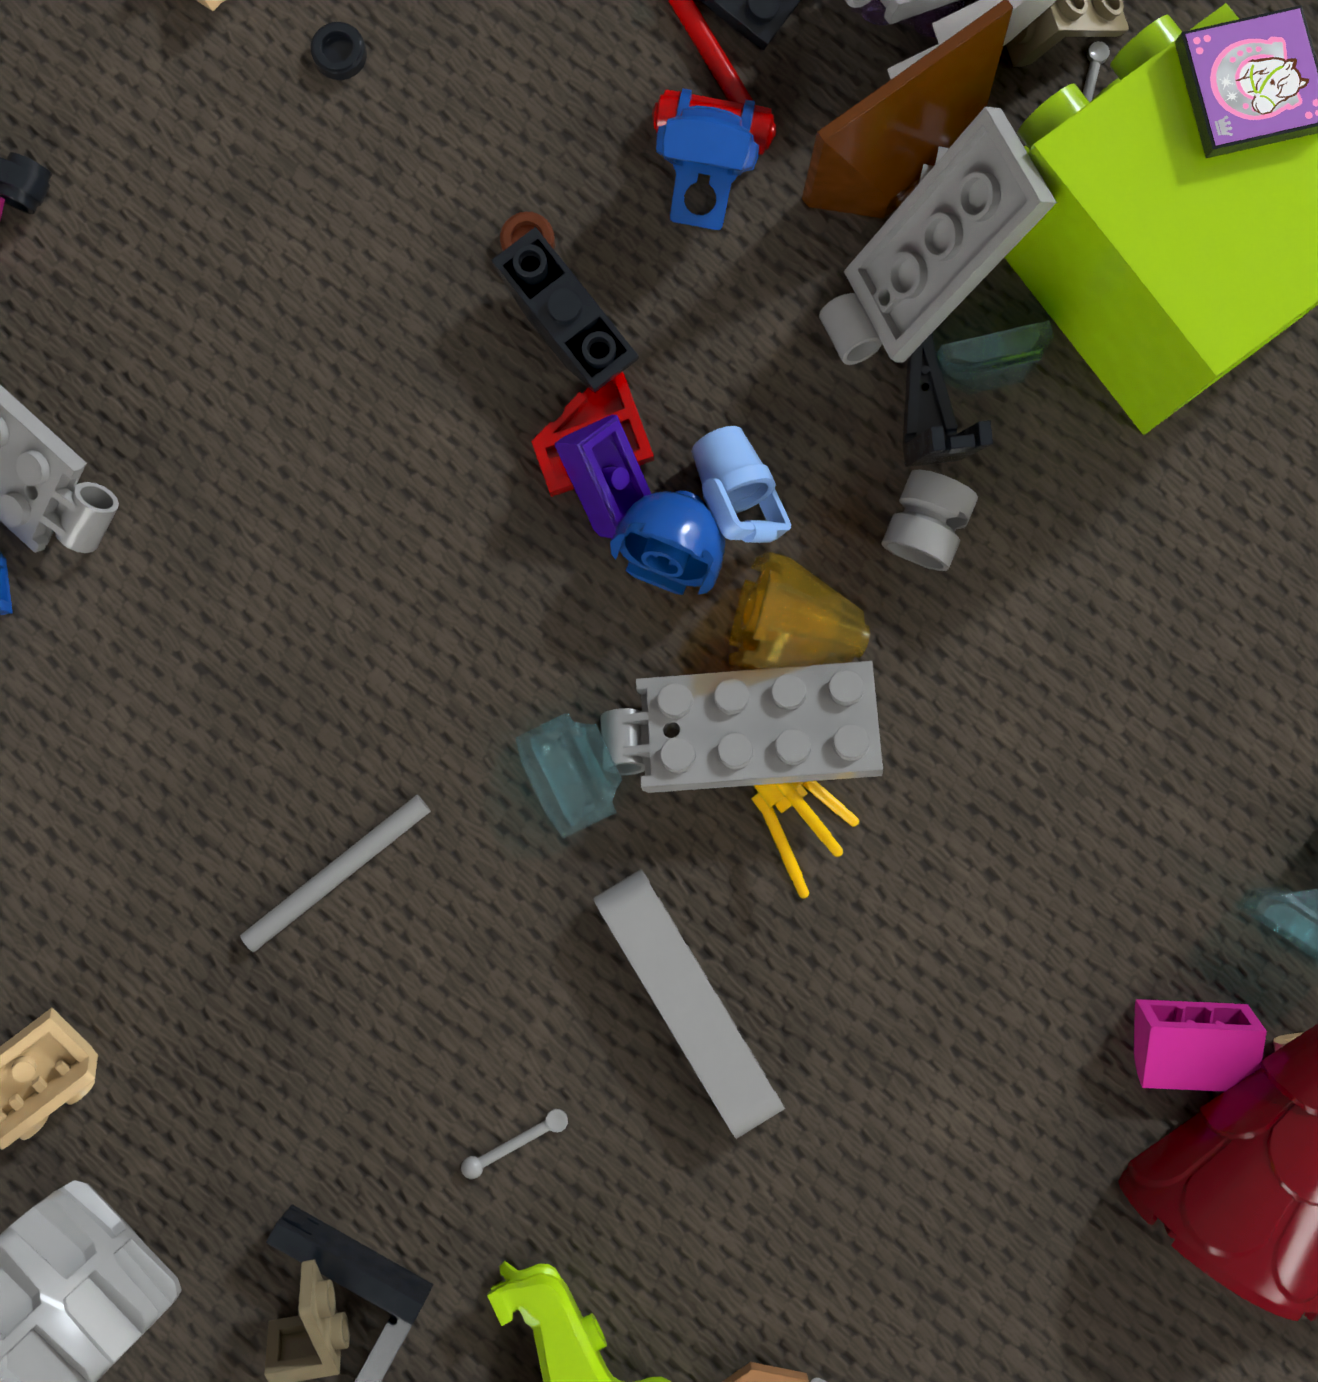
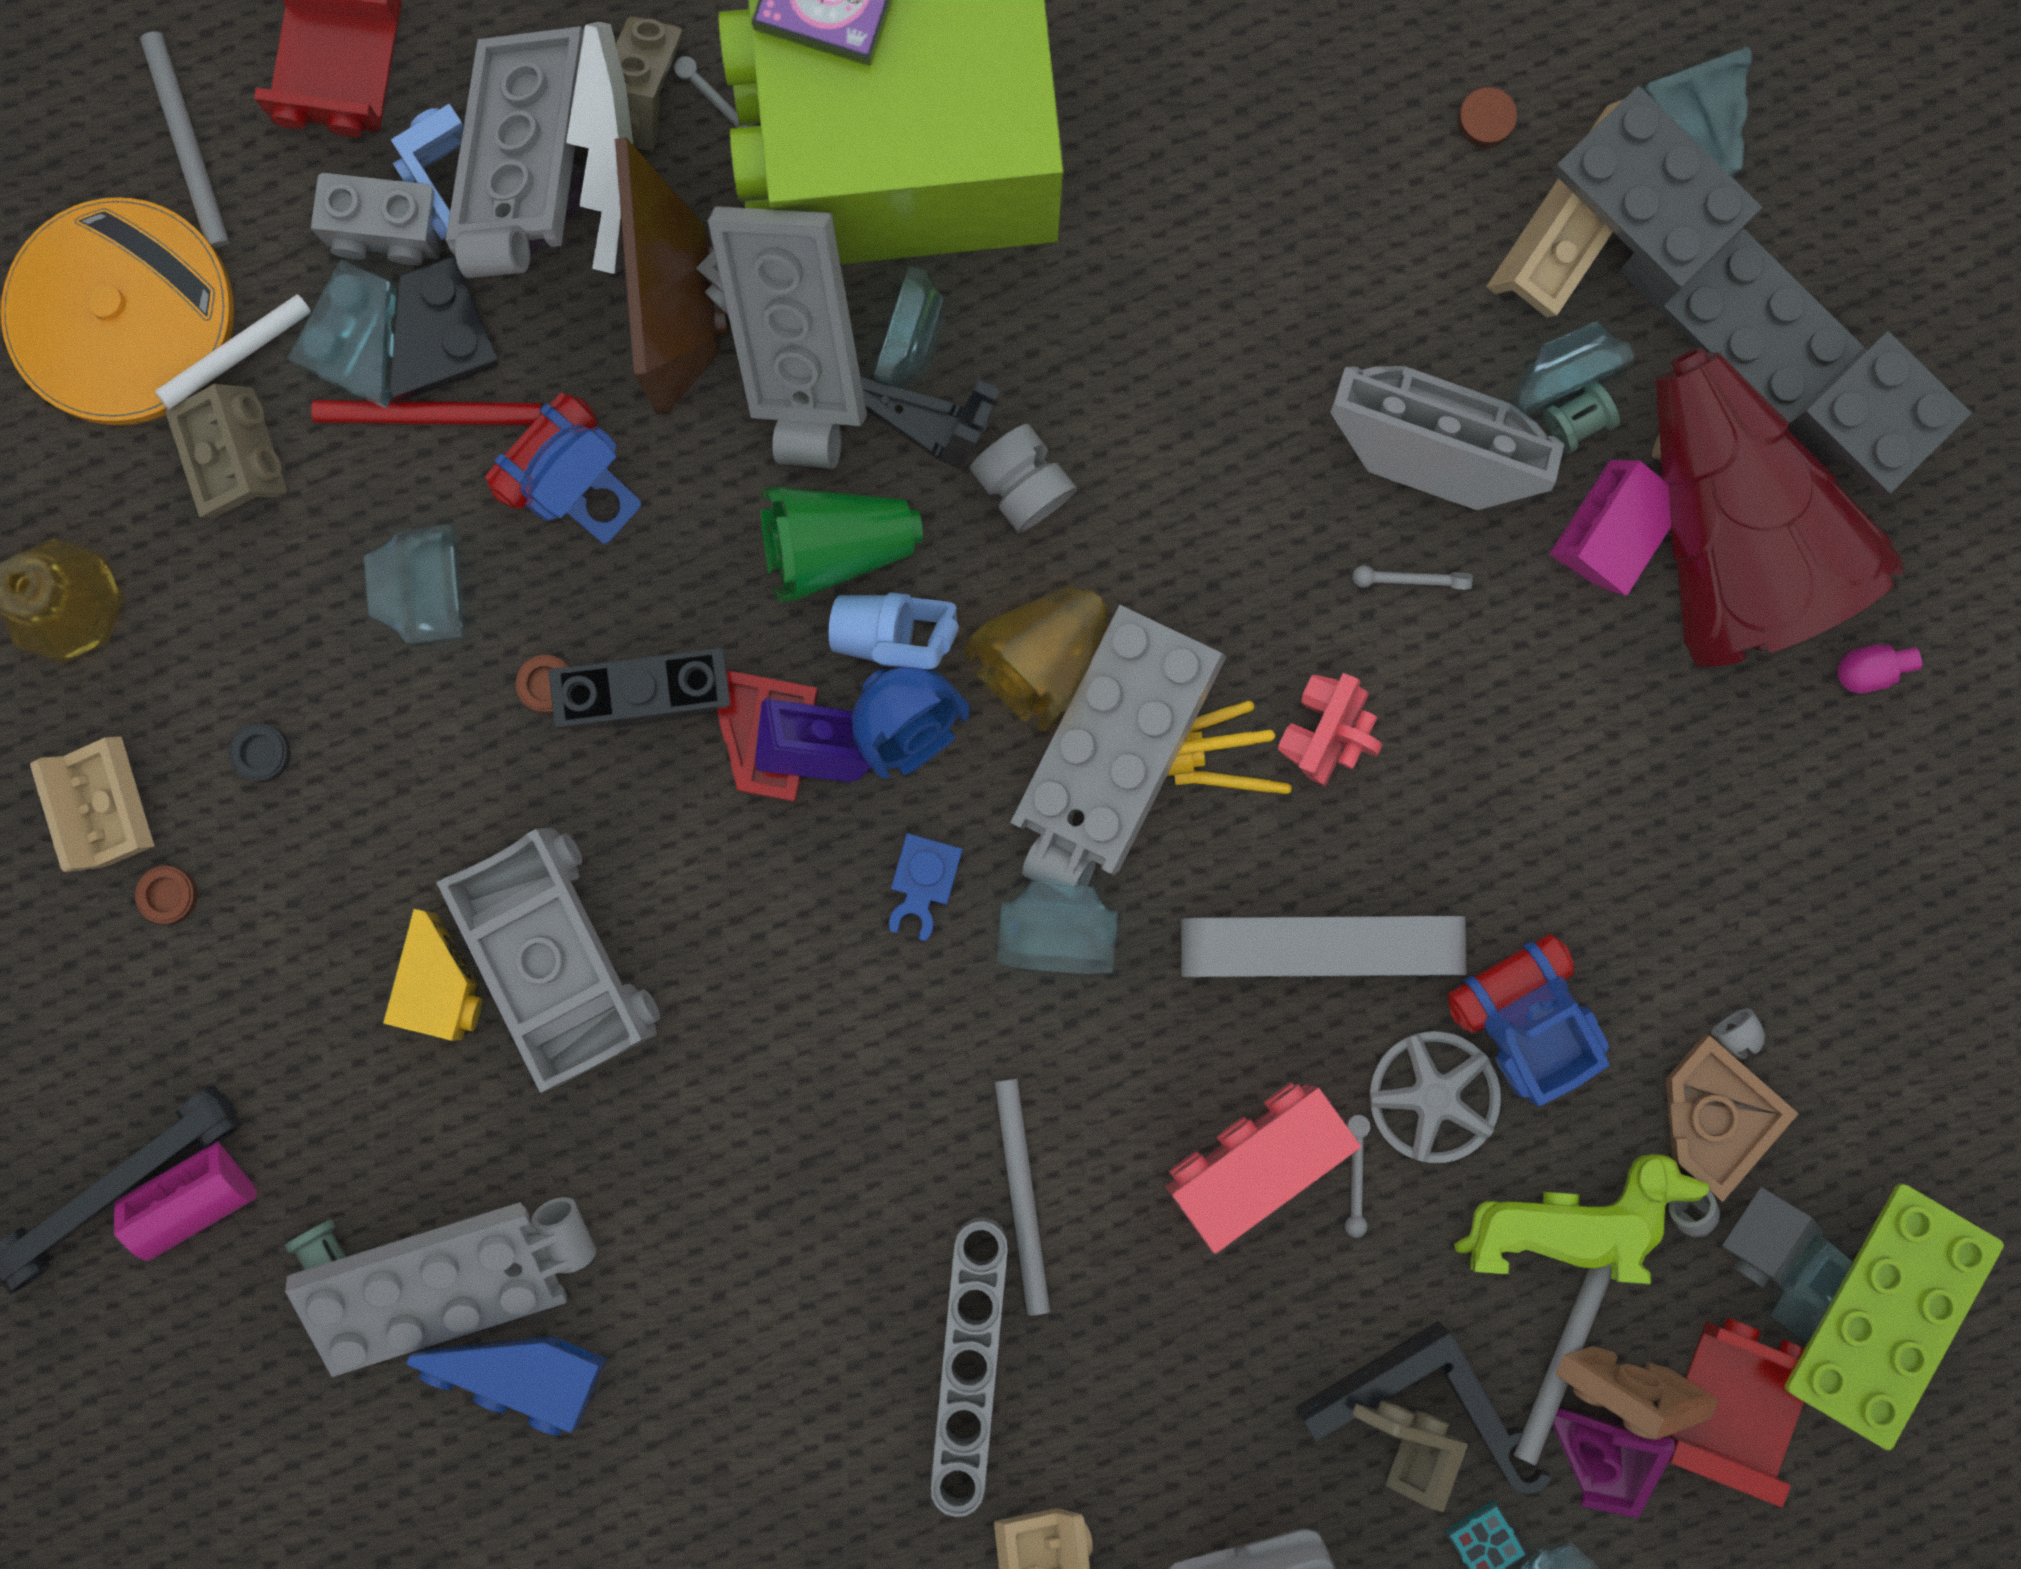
camera: 60 degrees left, 0 degrees up
(142, 915) = (974, 1394): none -> light grey beam
(182, 47) = (166, 895): none -> copper tile
(231, 292) = (433, 983): none -> yellow slope
(300, 369) = (546, 959): none -> light grey piece
(468, 1057) = (1261, 1164): none -> coral brick
(546, 91) = (418, 585): none -> clear light blue slope
(553, 636) = (925, 875): none -> blue plate
(618, 1172) = (1436, 1097): none -> light grey wheel
(737, 1210) = (1540, 1030): none -> blue piece
(786, 395) = (832, 537): none -> green cone
(880, 910) = (1341, 707): none -> coral hips
(1022, 854) = (1364, 576): none -> light grey hinge
(1180, 851) = (1444, 437): none -> light grey wedge
(1212, 1341) = (1876, 667): none -> dark pink cylinder
(1270, 959) = (1582, 417): none -> sand green bush

